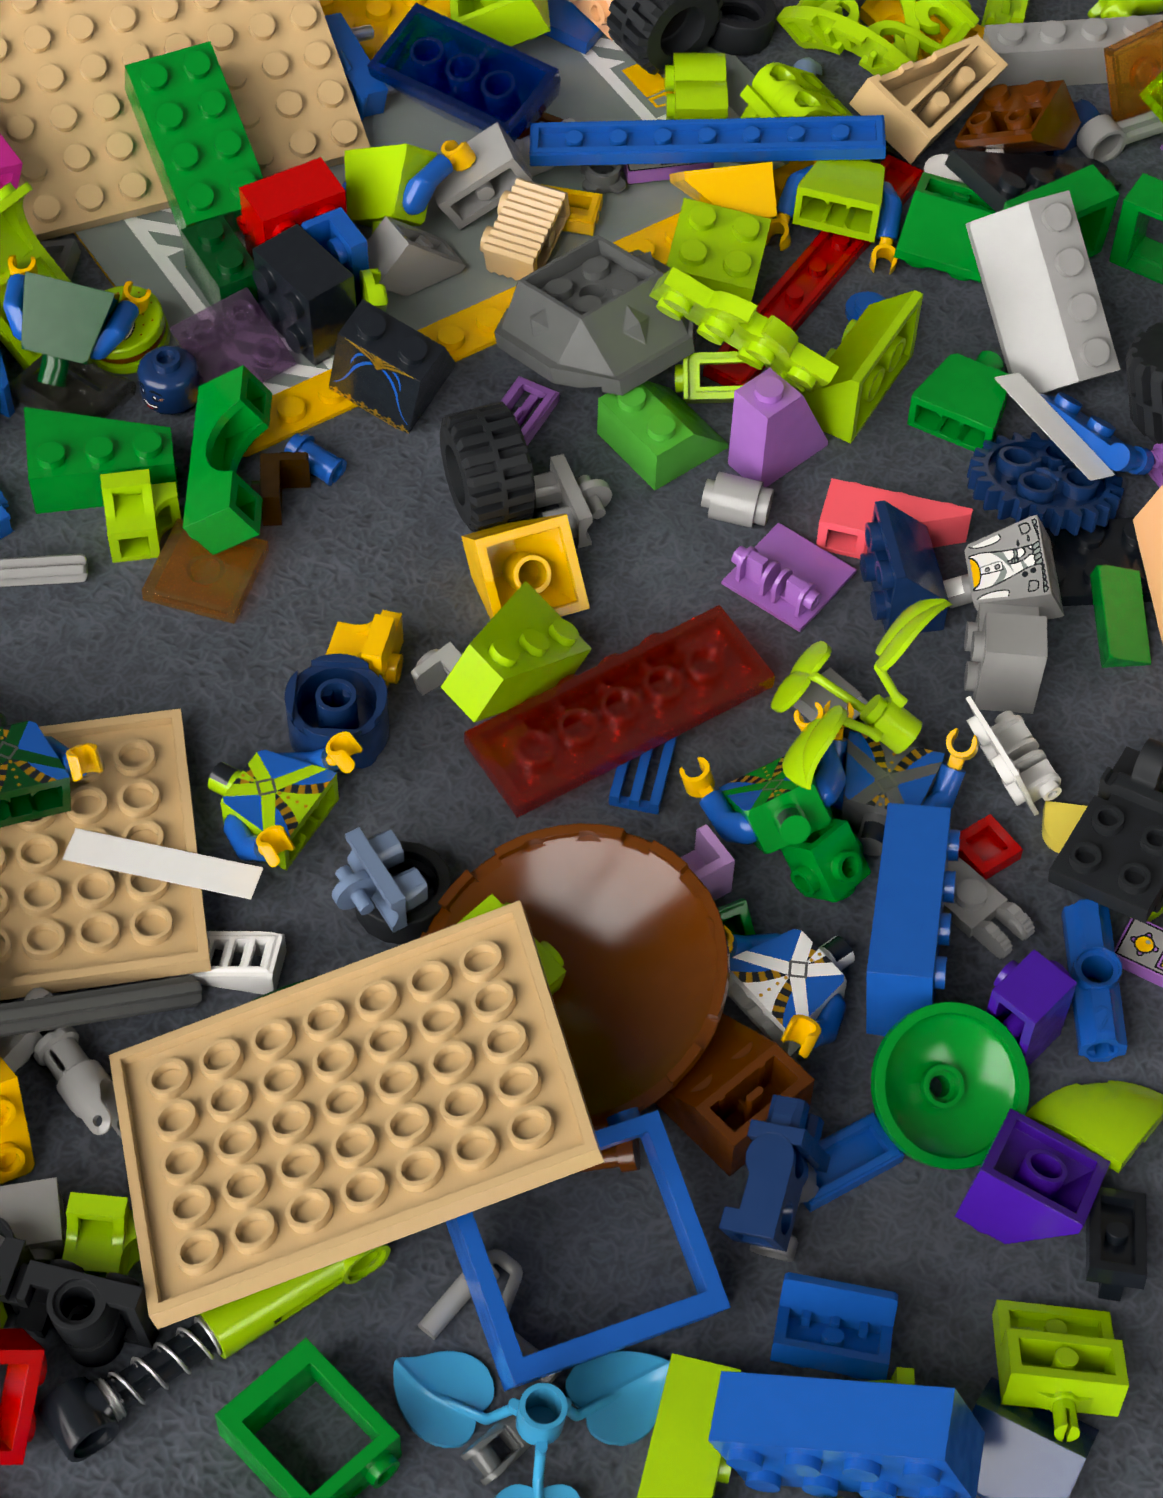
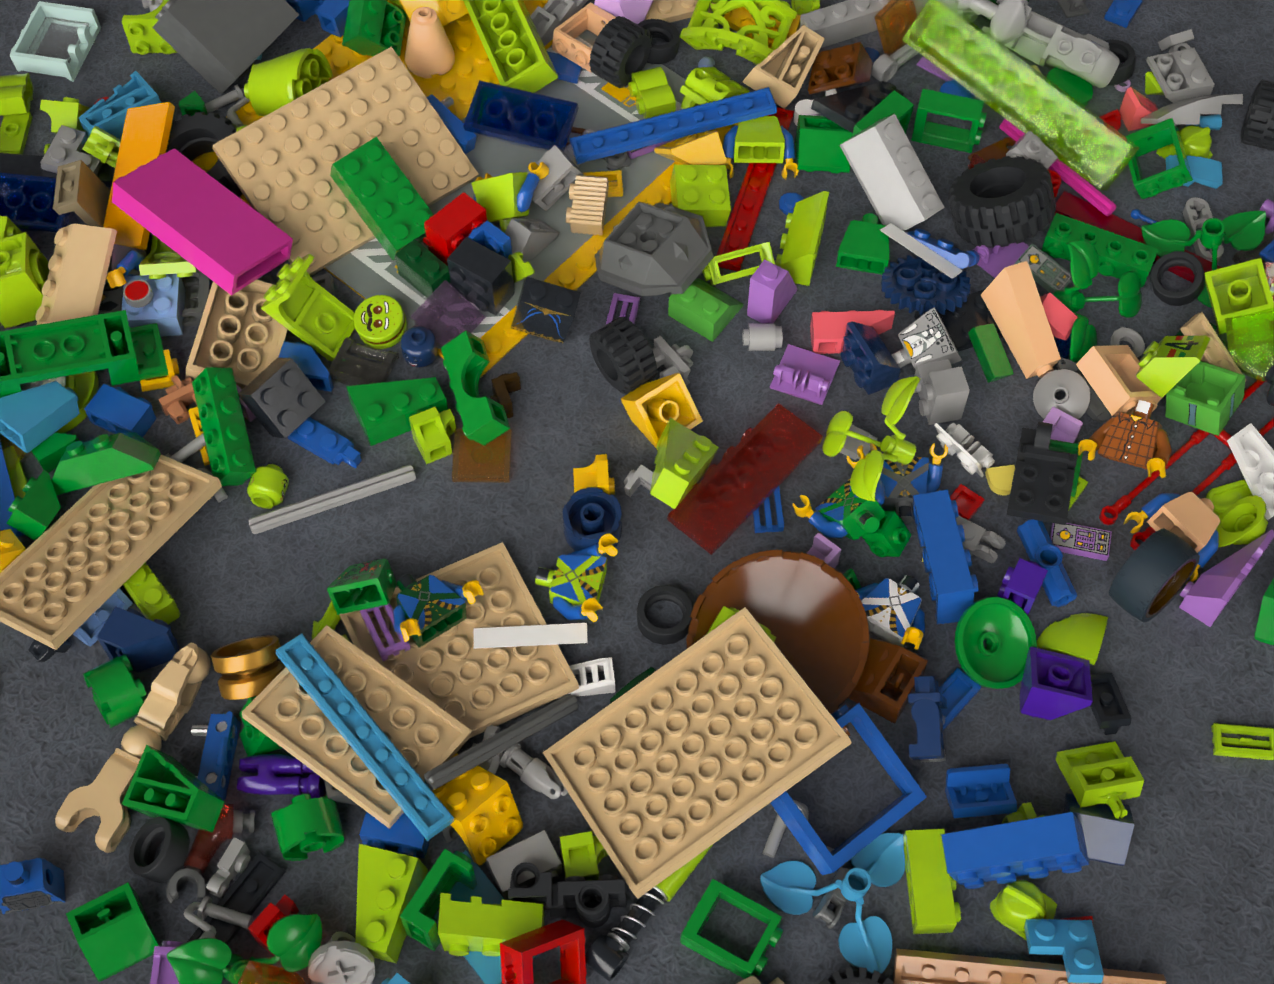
camera: 15 degrees left, 5 degrees up
(66, 319) = (351, 327): torso -> none
(321, 461) = (526, 374): blue pin -> none
(371, 879) = (653, 617): sand blue hips -> none
(736, 322) = (744, 240): lime plate -> none

